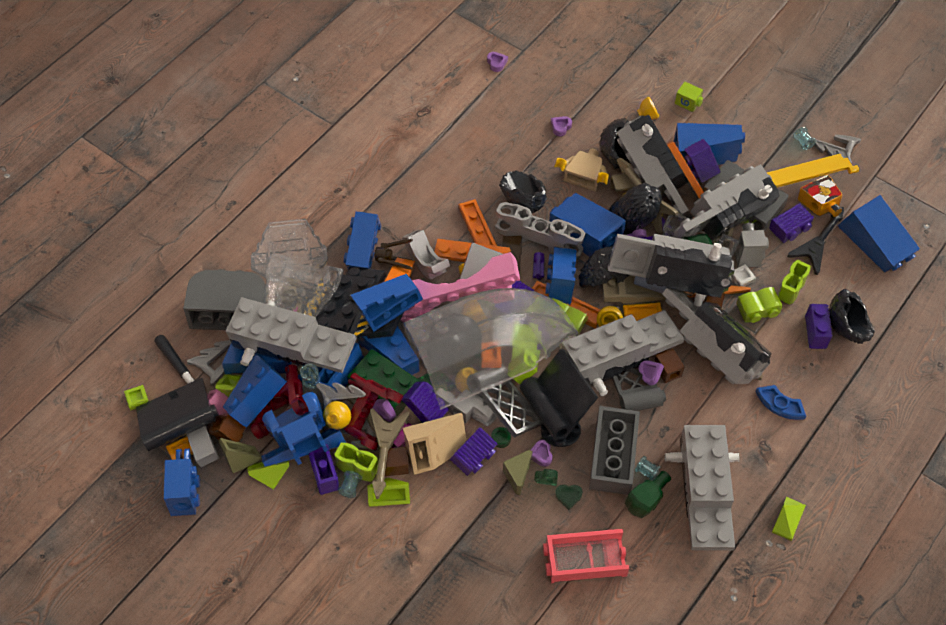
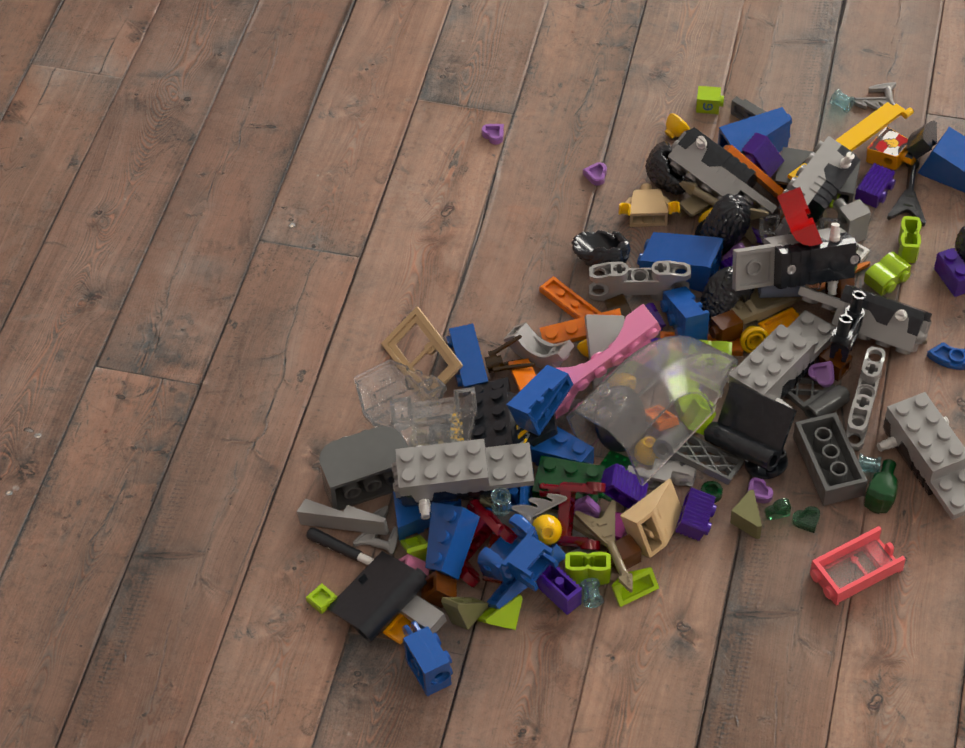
camera: 20 degrees left, 5 degrees down
(192, 339) = (350, 519): none -> light grey slope
(341, 221) = (436, 344): none -> tan door
(590, 298) = (726, 326): none -> reddish brown brick
(665, 417) = (865, 396): none -> light grey piece
(687, 342) = (848, 327): none -> black connector
(690, 234) = (796, 212): none -> red brick
(716, 115) = (744, 109): none -> dark grey panel
(853, 198) = (922, 139): none -> black slope

